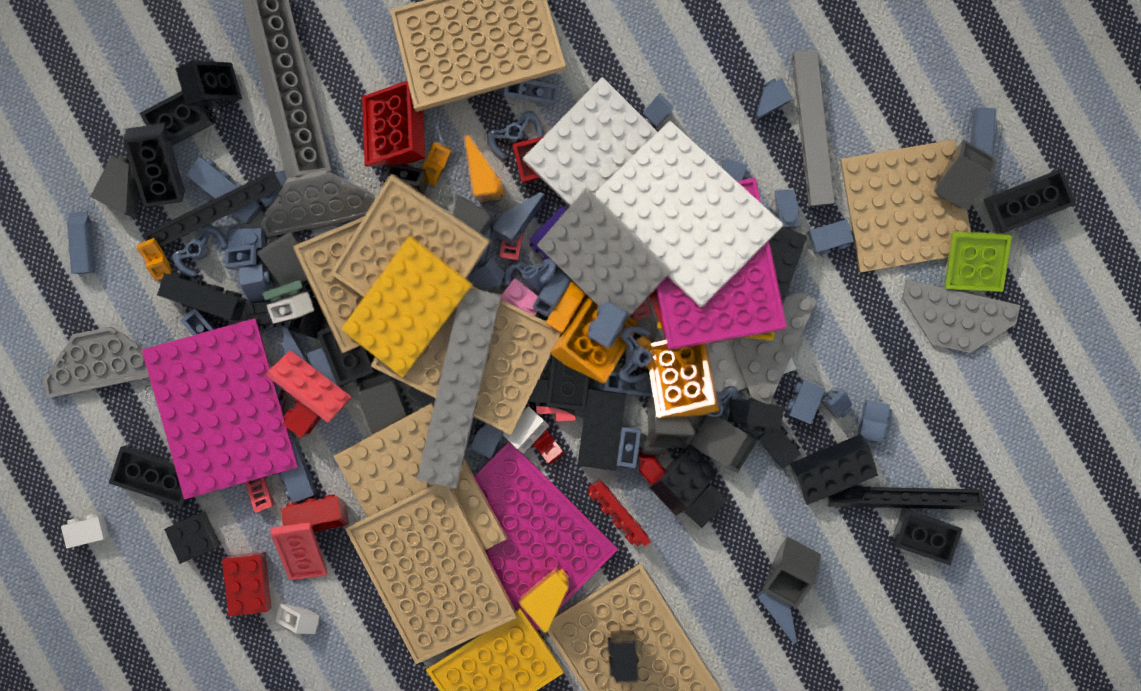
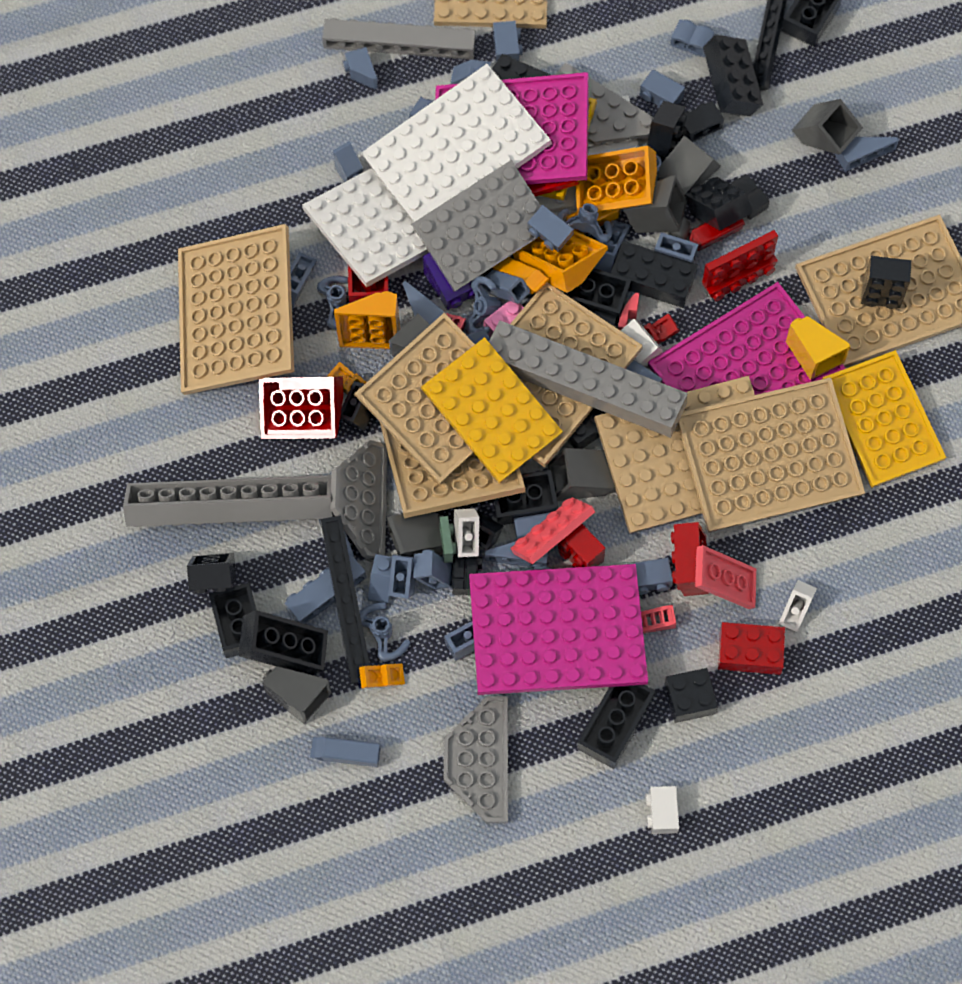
camera: 80 degrees left, 20 degrees down
(202, 297) = (428, 635): black brick -> none
(837, 402) = (666, 60): sand blue slope -> none

